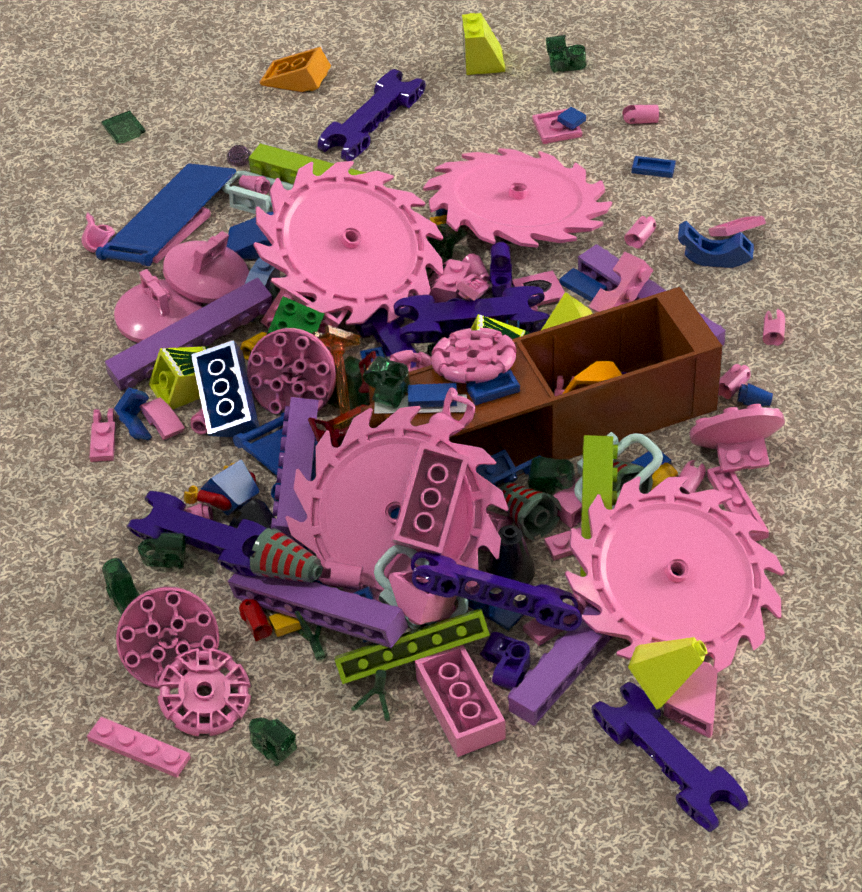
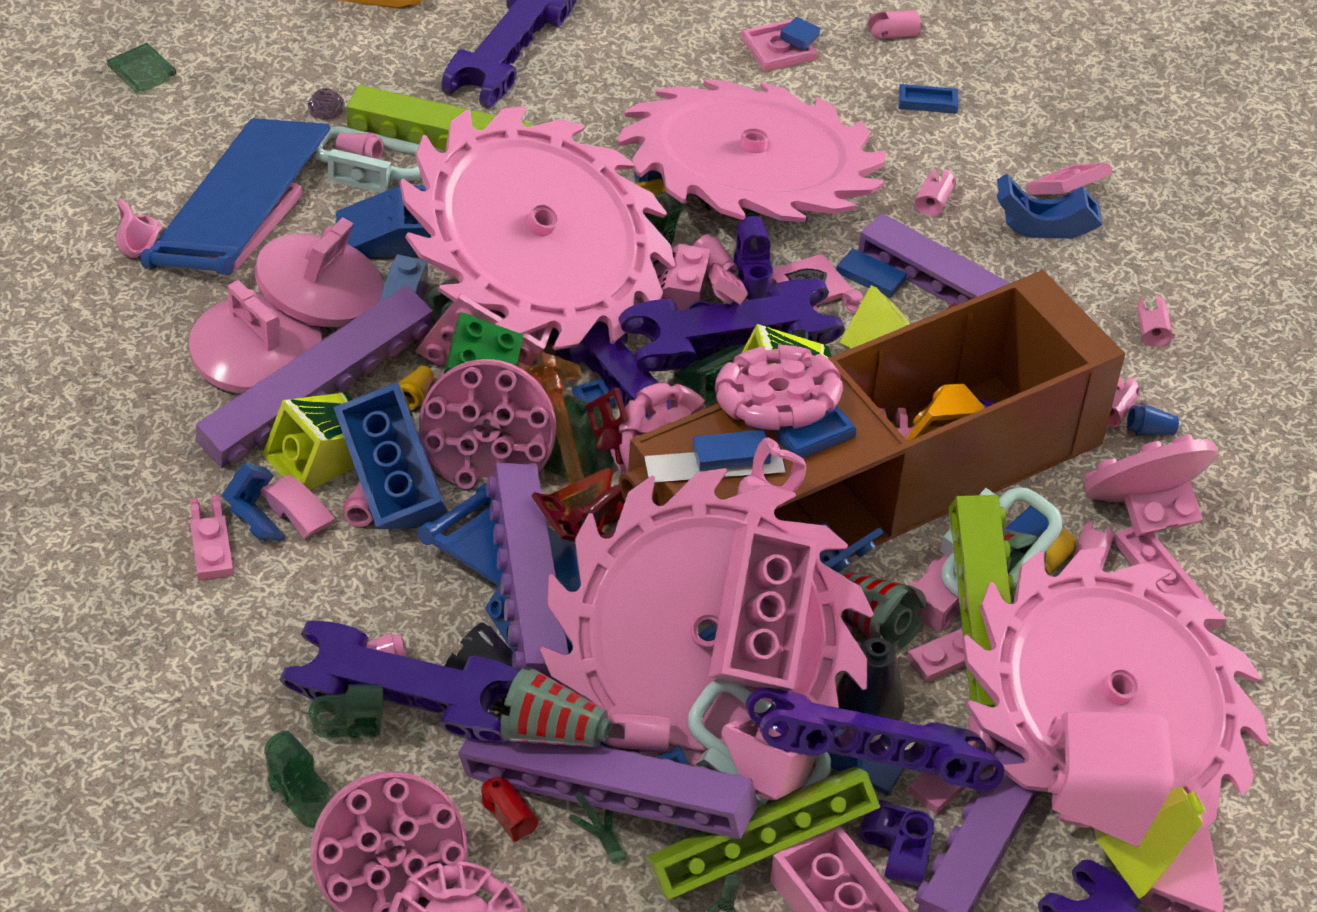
camera: 15 degrees left, 0 degrees up
(227, 489) = (428, 612): torso -> none
(283, 624) = (553, 811): yellow tile -> none
(389, 379) = (665, 428): clear green piece -> none
(547, 472) = (897, 555): clear green piece -> none
(633, 275) = (953, 254): bright pink arch -> none
(644, 622) = (1113, 770): none -> bright pink windscreen

